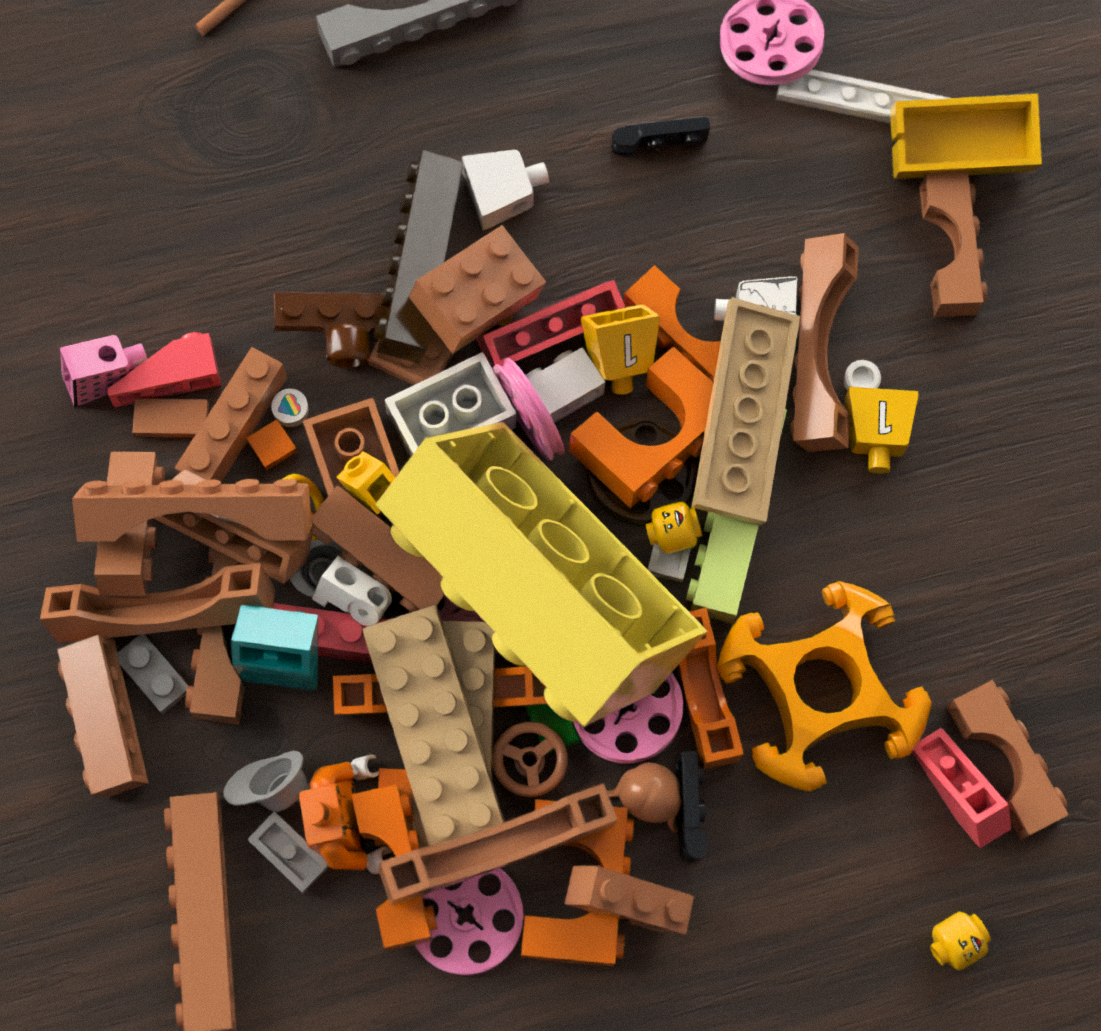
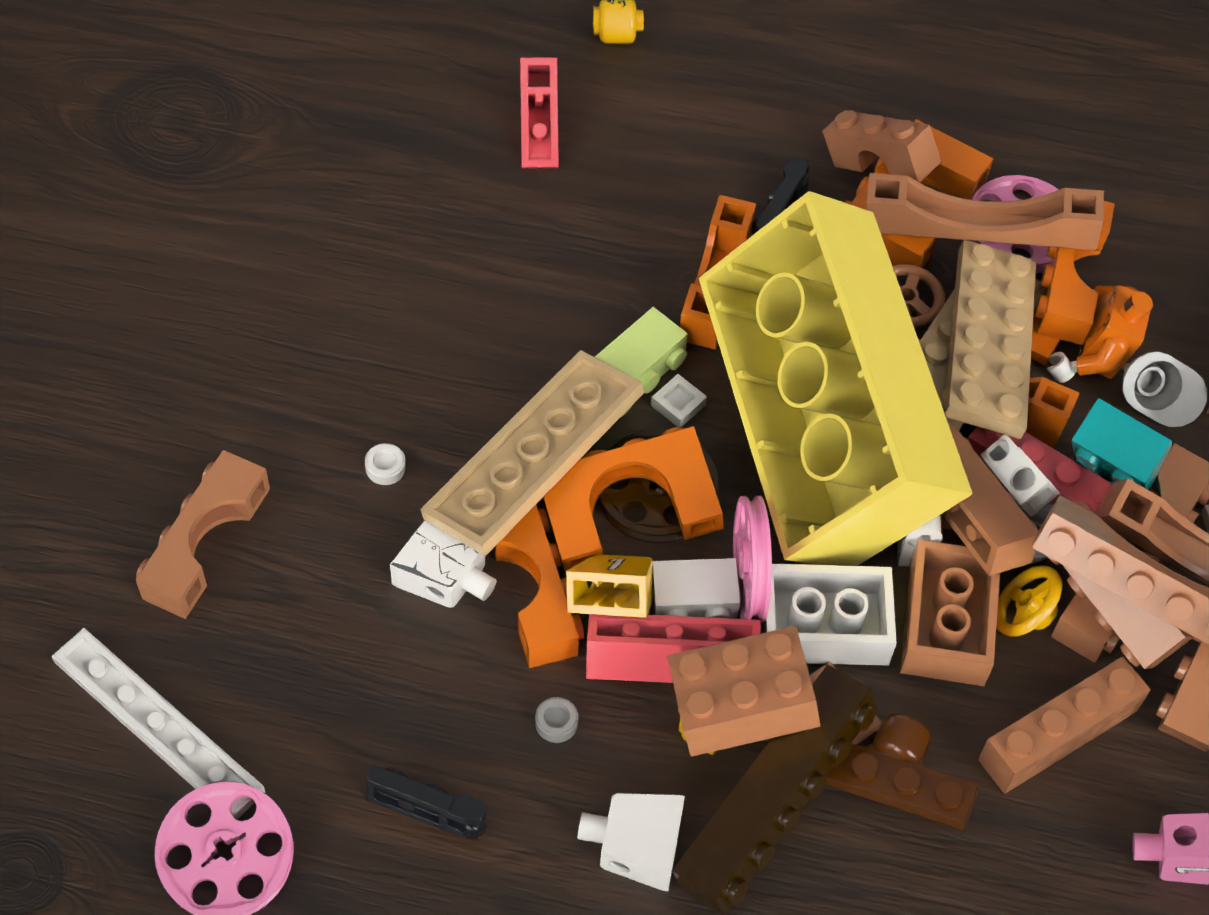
camera: 150 degrees left, 15 degrees down
(169, 417) = (1126, 773): nougat tile -> none
(175, 369) = (1102, 813): coral slope -> none
(271, 444) = (1024, 691): orange tile -> none
(288, 852) = (1167, 334): light grey plate -> none
(290, 407) = (989, 718): white tile -> none
(366, 480) = (959, 547): yellow brick -> none
(608, 246) = (556, 719): none -> light grey tile
(674, 528) = (664, 403): yellow head -> none
(828, 274) = (350, 562): nougat arch -> none
(844, 647) = (599, 193): light orange piece -> none
(880, 423) = (400, 407): yellow torso -> none
(966, 135) = (110, 612): yellow piece -> none
(987, 717) = (483, 145): nougat arch -> none

